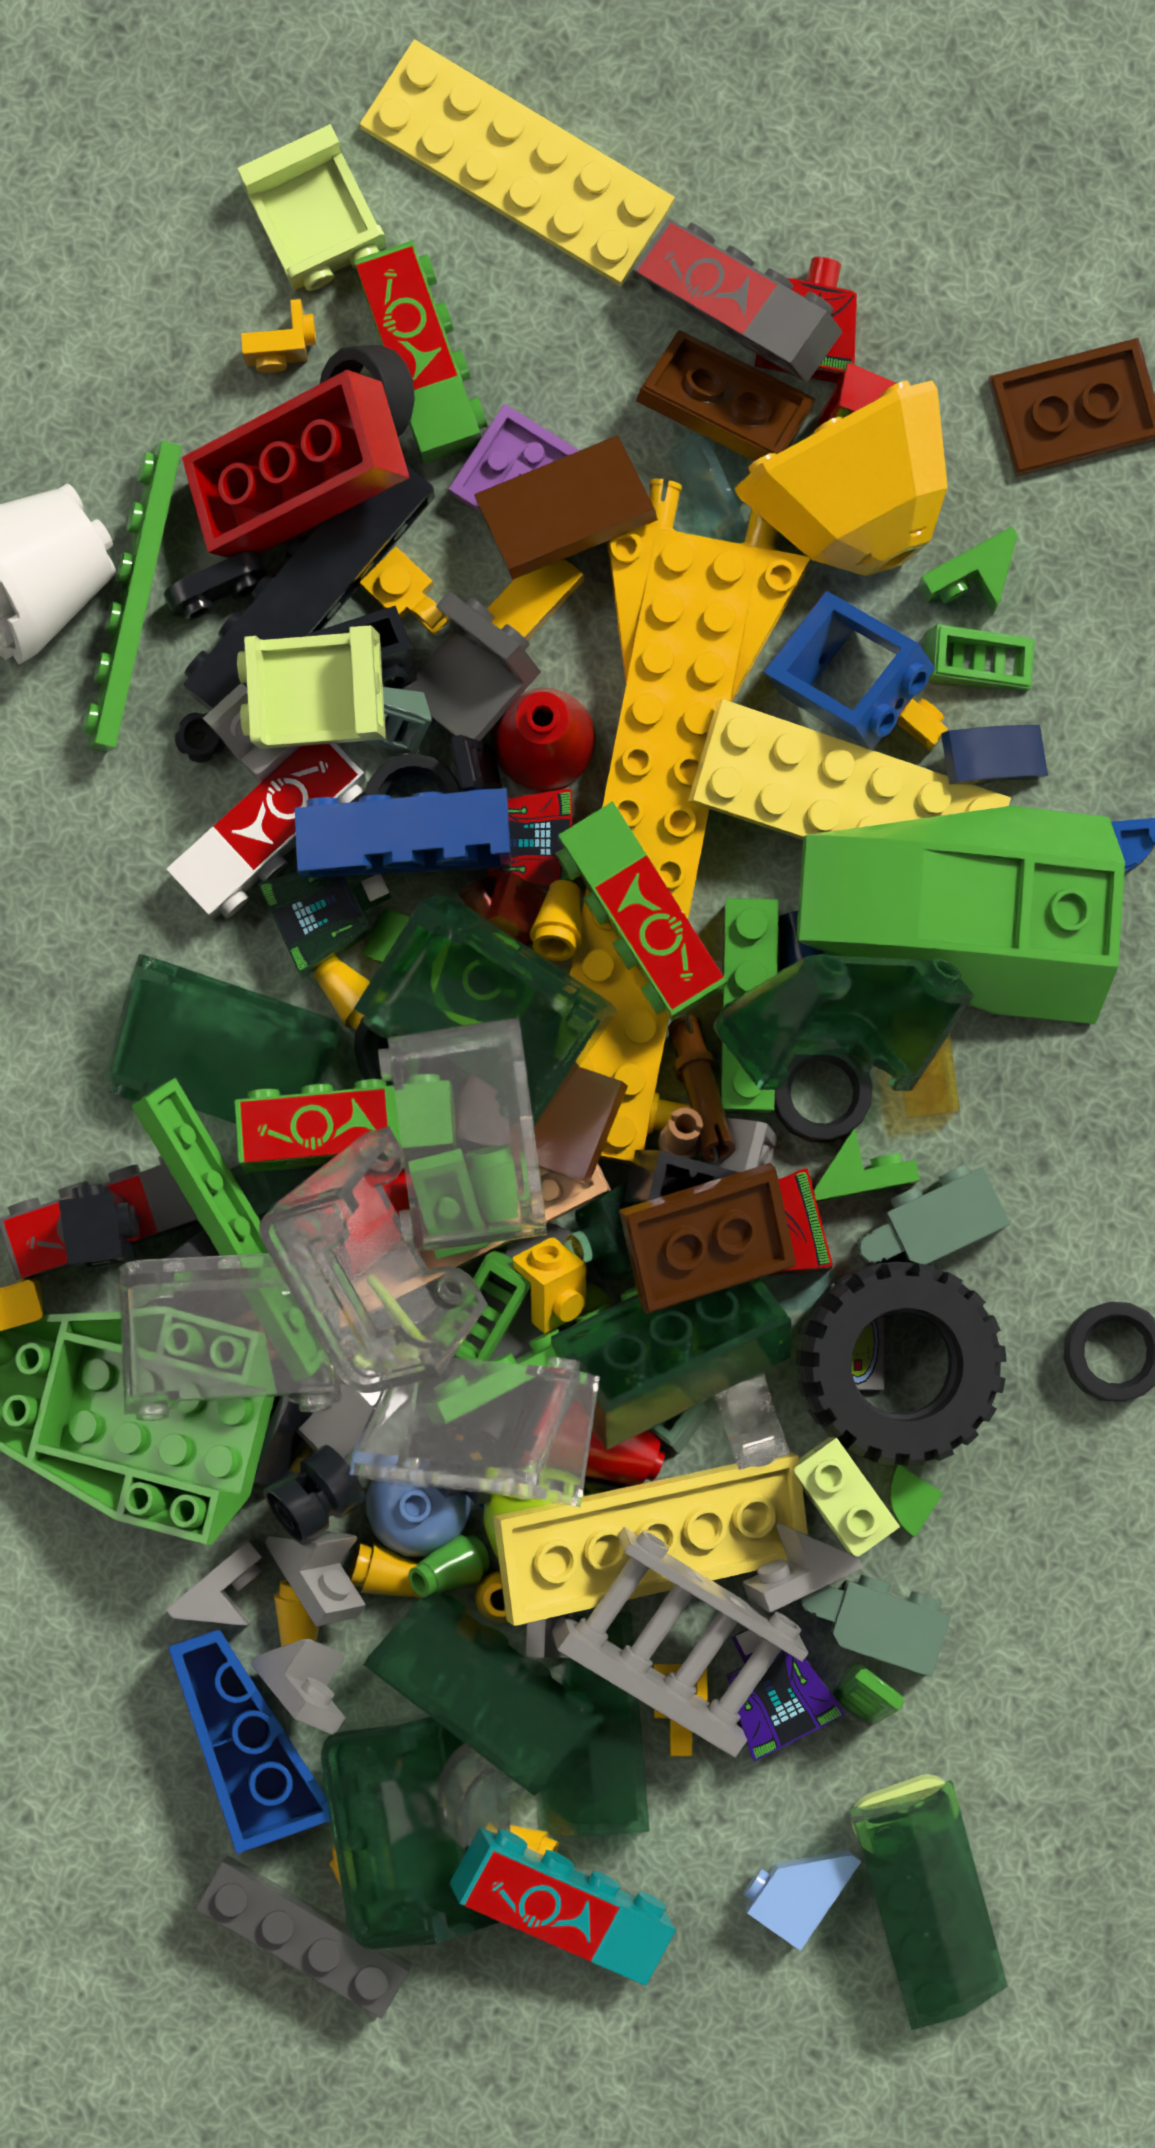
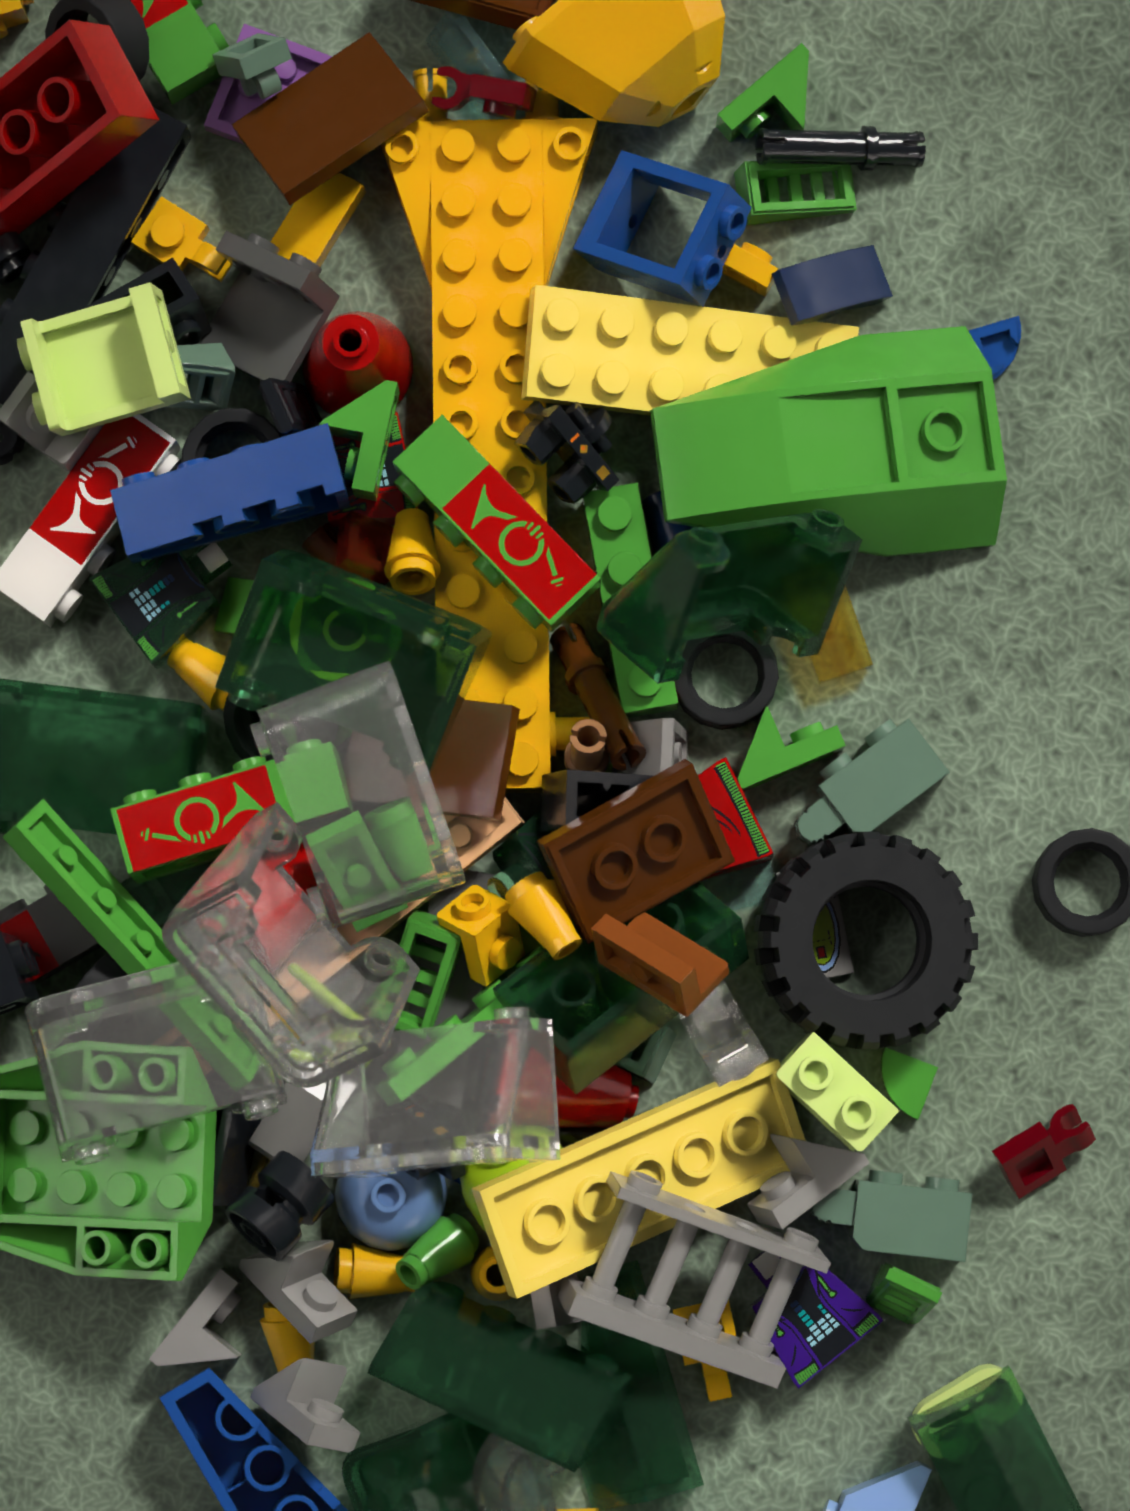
camera: 10 degrees left, 0 degrees up
(506, 442) = (254, 63): none -> sand green tile
(545, 794) = (371, 422): none -> bright green slope
(610, 1277) = (543, 914): none -> yellow cone
(708, 1343) = (659, 960): none -> dark orange panel
(723, 518) = (497, 95): none -> dark red plate
(732, 851) = (577, 440): none -> black hips
(1018, 1591) = (1038, 1153): none -> dark red plate
(1048, 634) = (858, 148): none -> black pin

